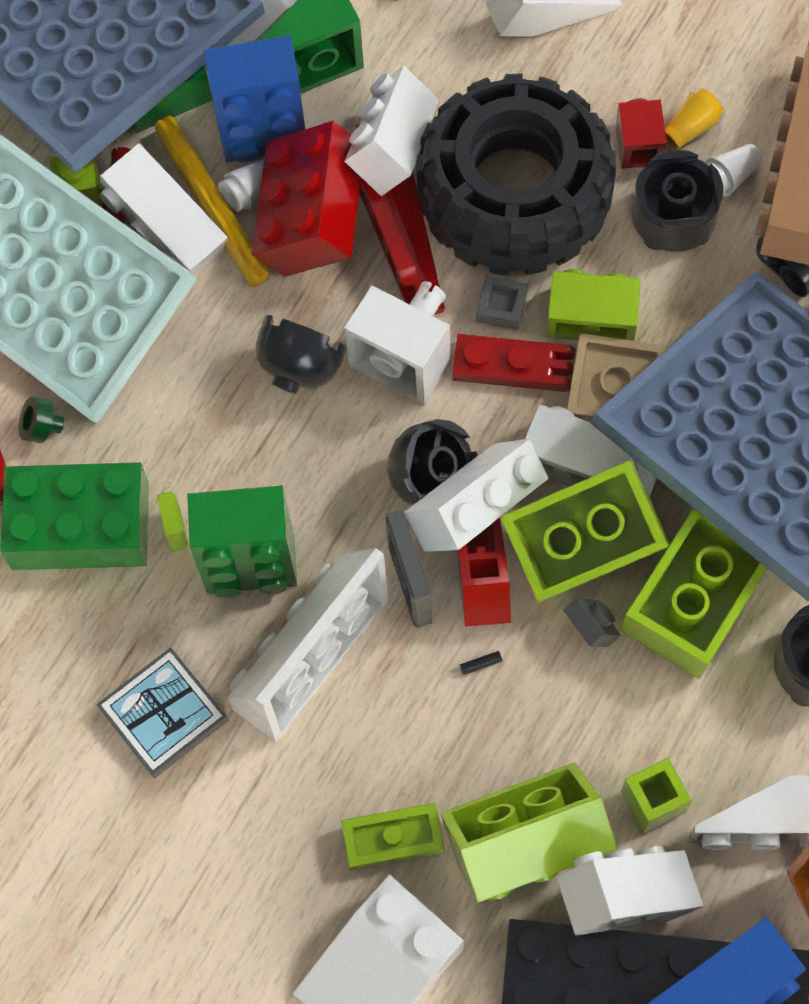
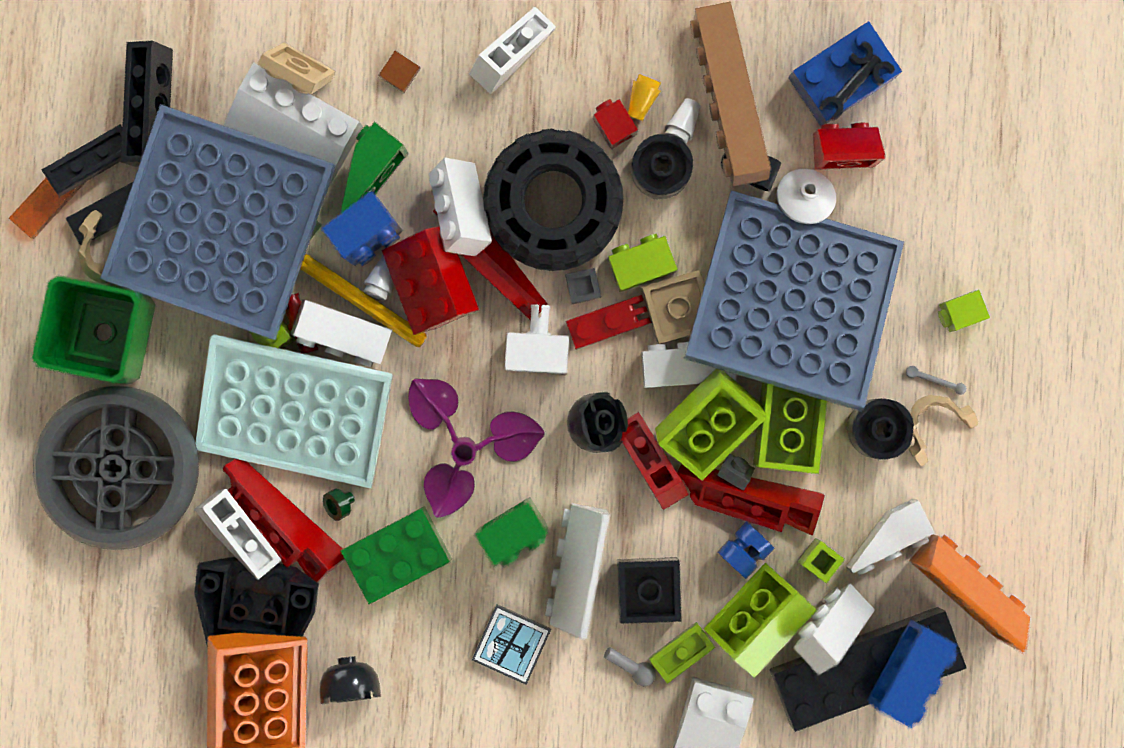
camera: 30 degrees left, 20 degrees up
(172, 521) = (456, 529): lime tile -> none
(227, 358) = (448, 487): none -> magenta plant
(296, 355) = (477, 387): black cylinder -> none
(322, 843) = (642, 673): none -> light grey bar
(389, 719) = (649, 590): none -> black brick
(408, 569) = (616, 496): dark grey tile -> none
(476, 495) = (635, 432): white brick -> none
(481, 662) = (680, 523): black piece -> none
(539, 739) = (734, 551): none -> blue wheel
(599, 676) = (760, 502): none -> red wedge

